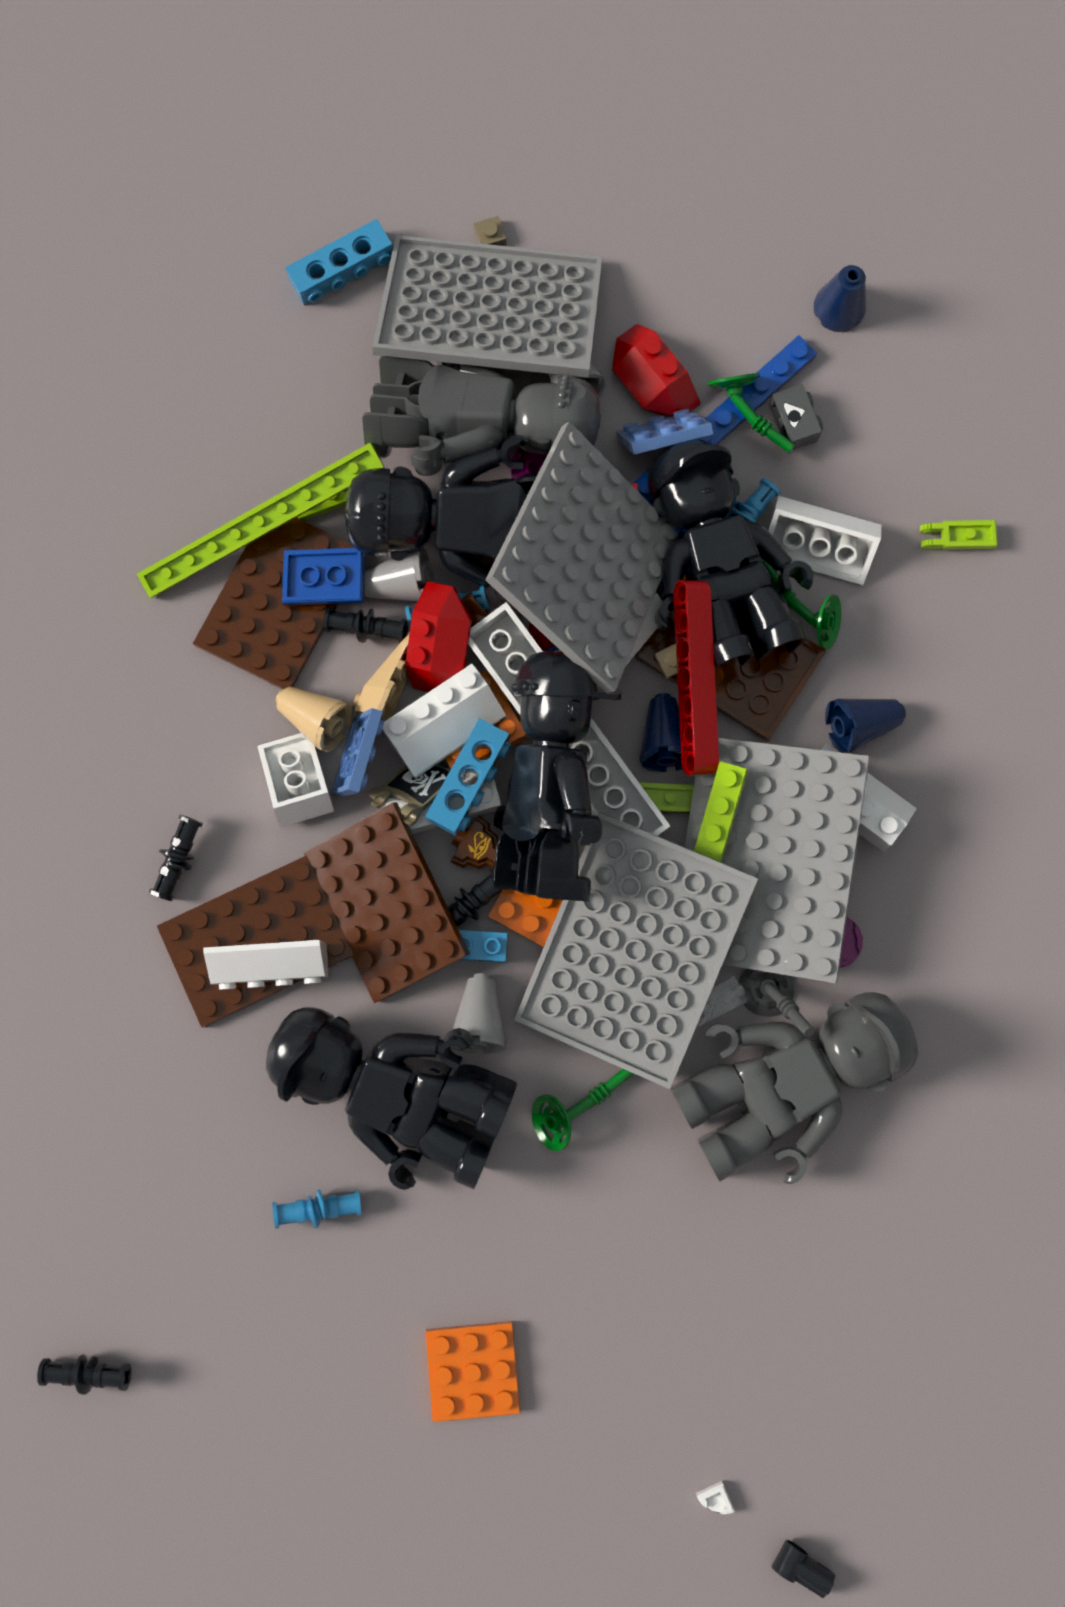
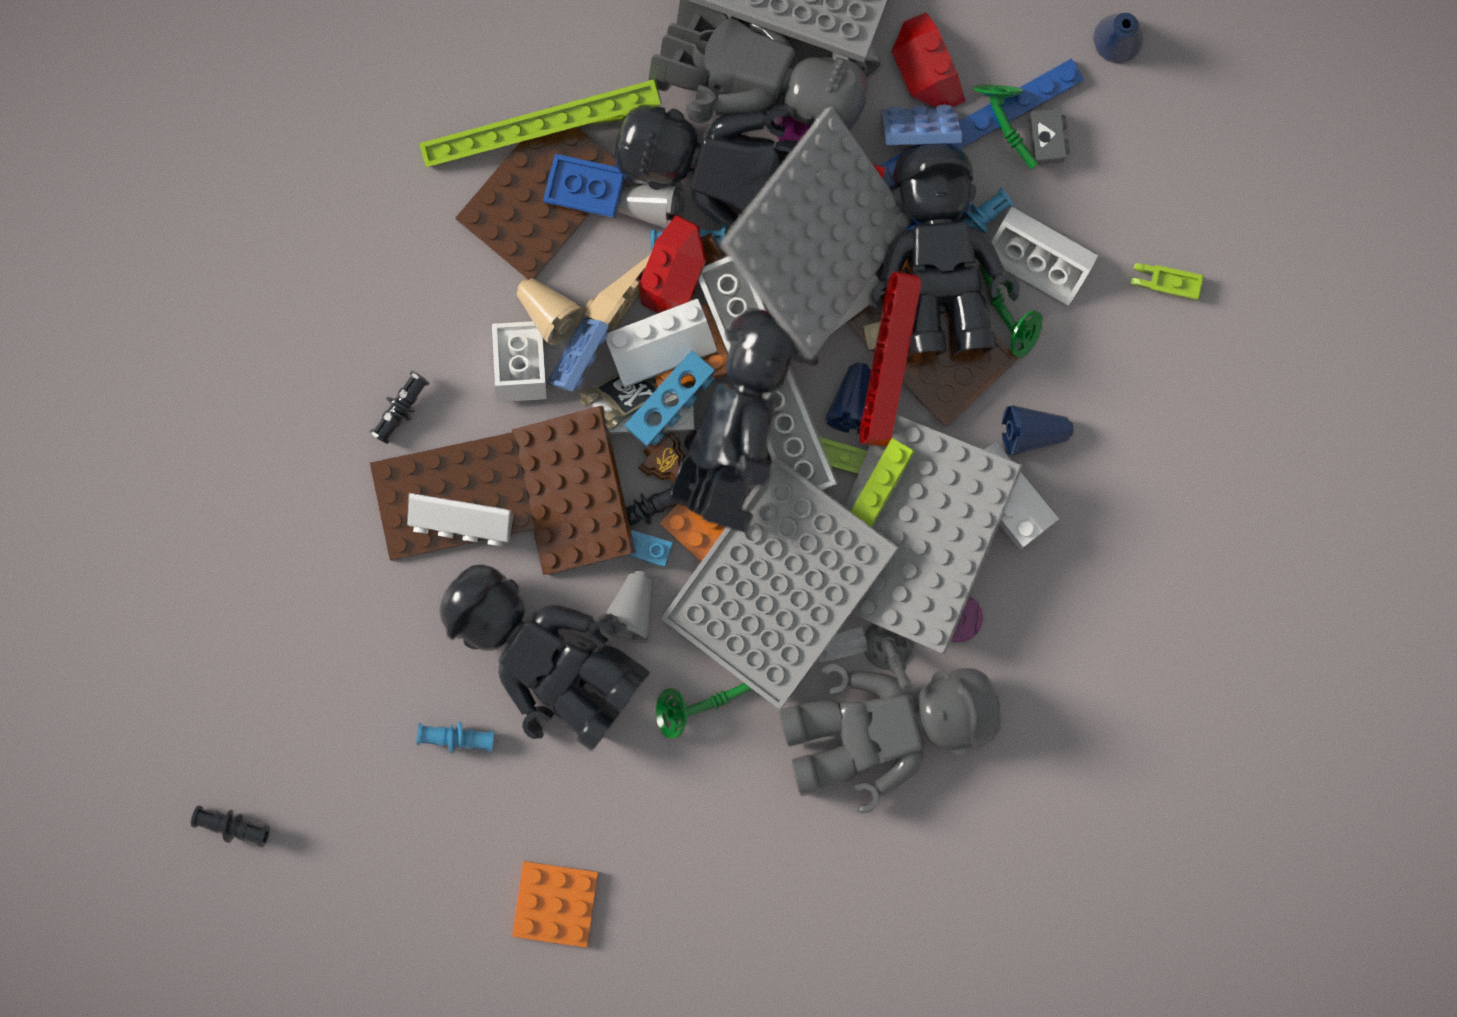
camera: 20 degrees right, 5 degrees up
(365, 626) = (611, 238): black piece -> none

